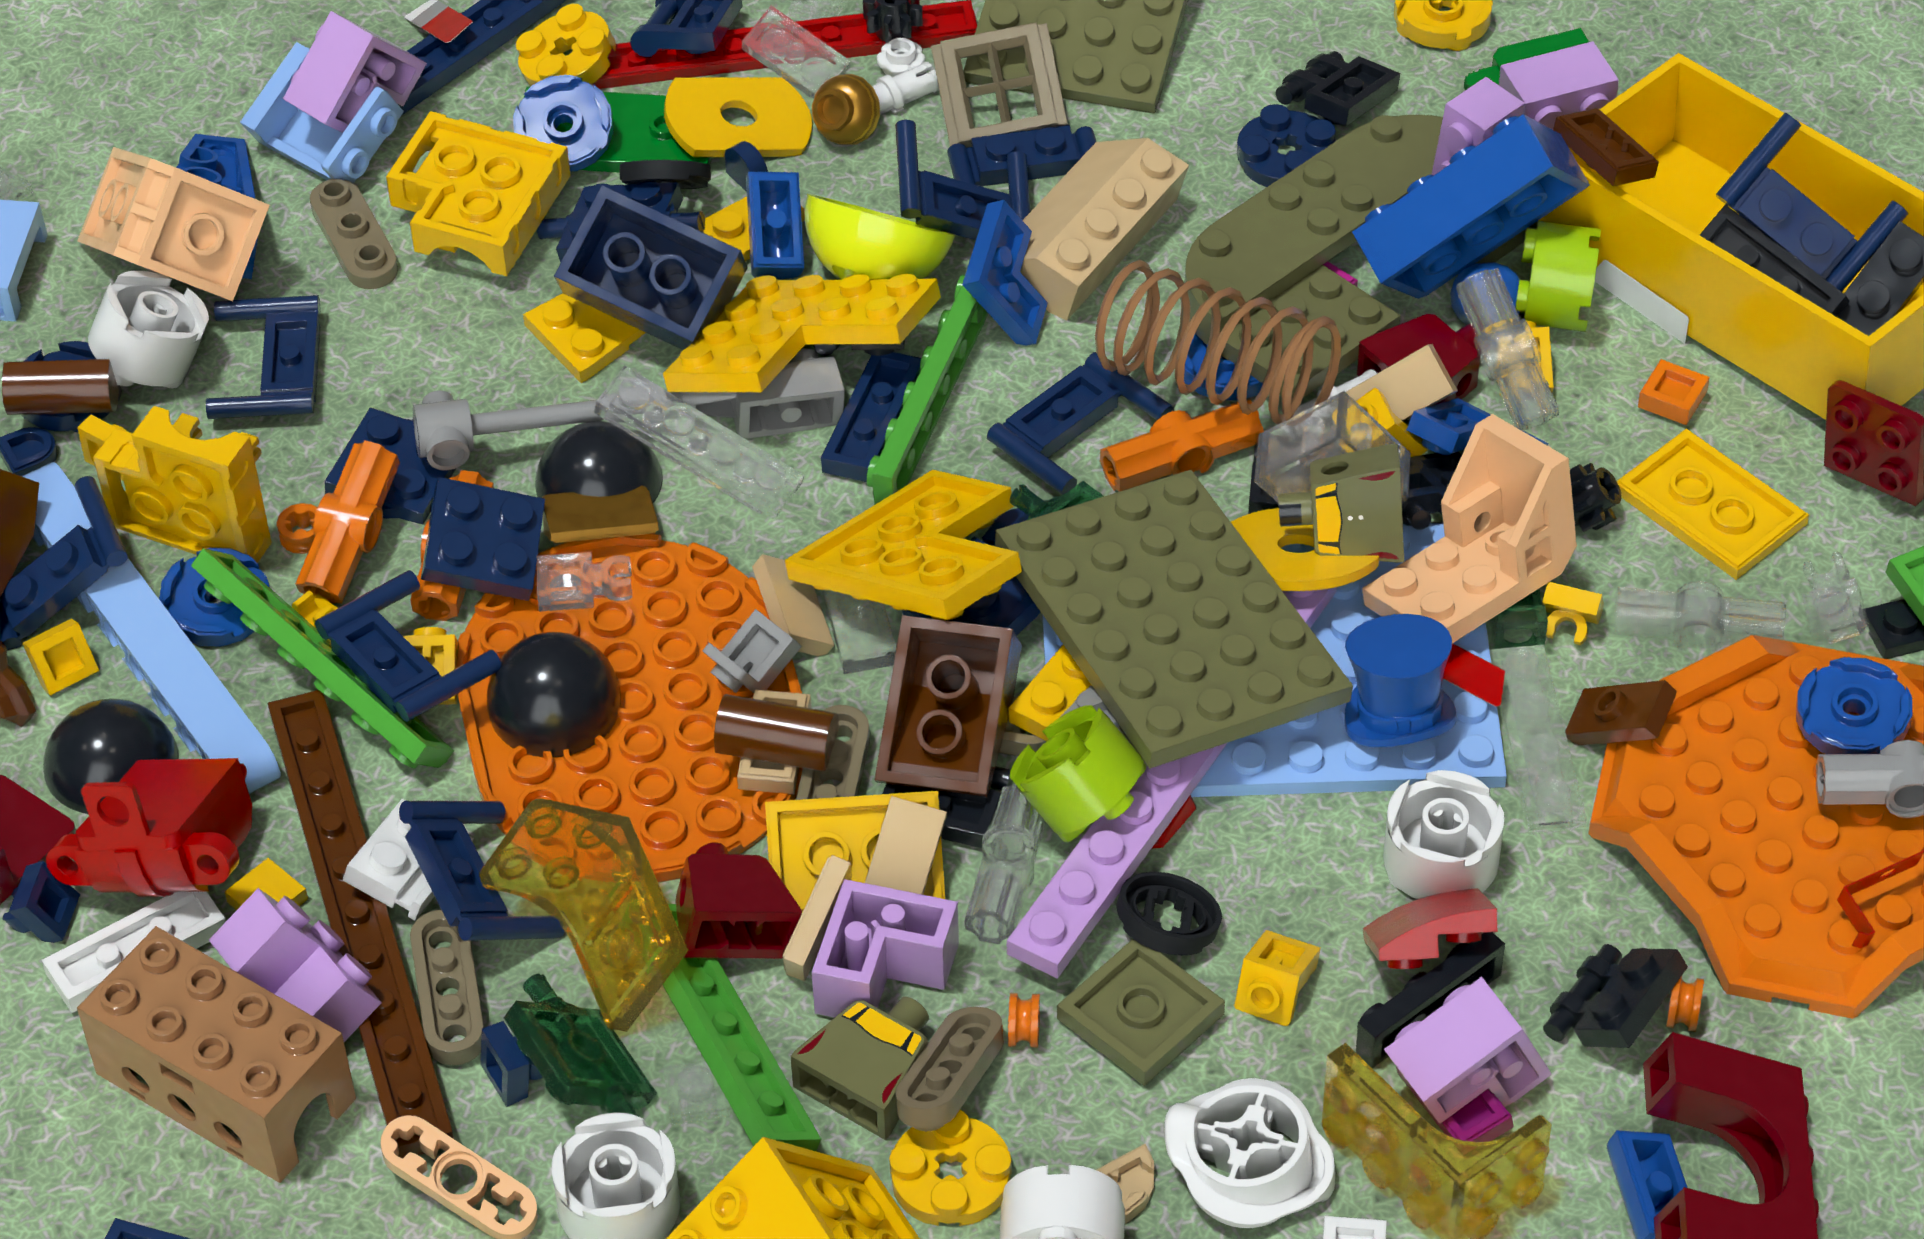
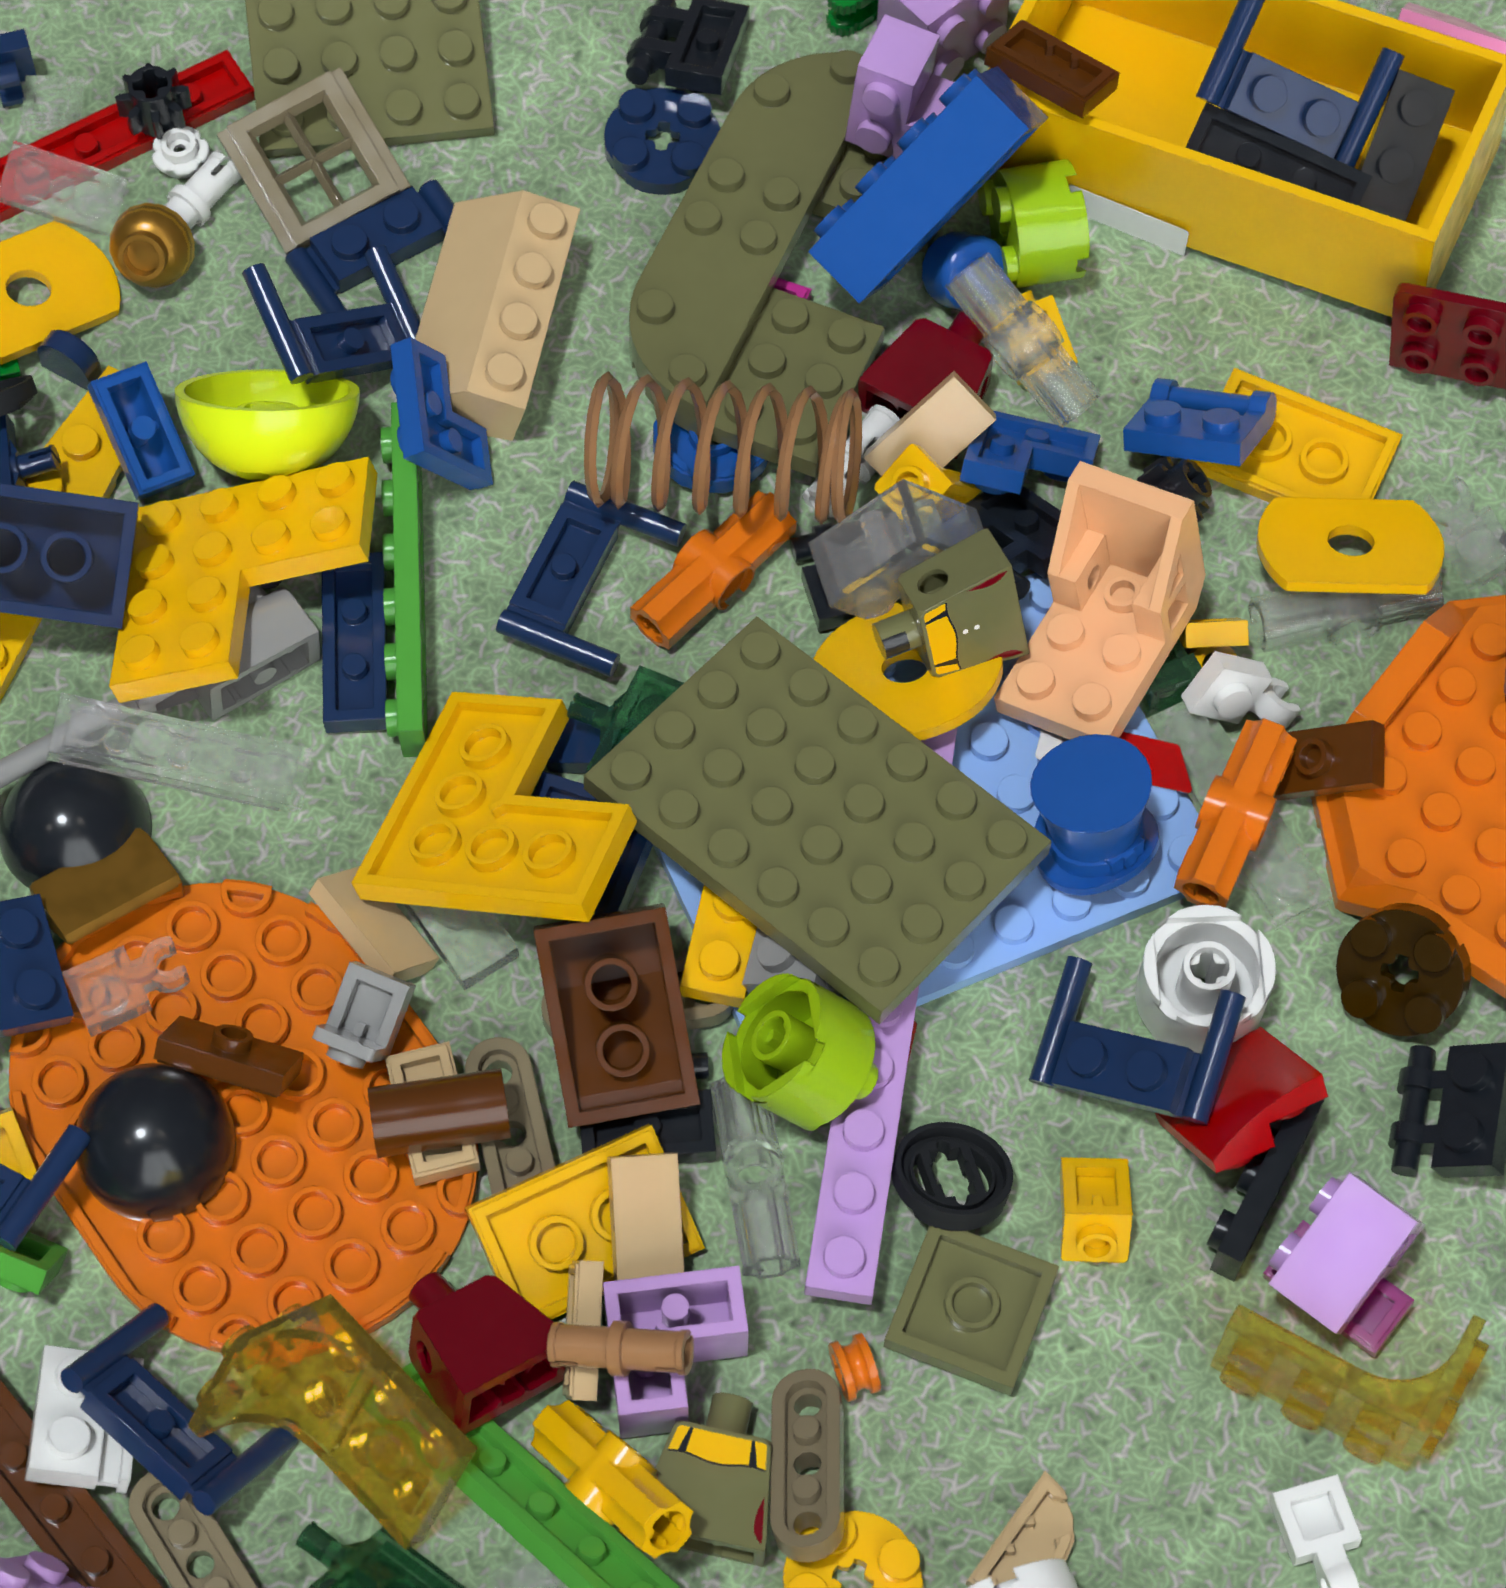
camera: 25 degrees left, 15 degrees up
(635, 649) = (228, 1055): none -> reddish brown plate
(786, 1016) = (612, 1479): none -> yellow piece
(833, 919) = (620, 1348): none -> medium nougat pin
(1264, 1170) = (1158, 1378): white piece -> none
(1354, 876) = (1128, 1066): none -> dark blue plate
(1526, 722) = (1235, 813): none -> orange piece
(1572, 642) = (1233, 686): none -> white plate
(1585, 874) = (1432, 950): none -> dark brown plate
(1633, 450) = (1200, 423): none -> blue plate
(1673, 392) = (1203, 326): orange plate -> none
(1762, 583) = (1298, 557): none -> yellow piece

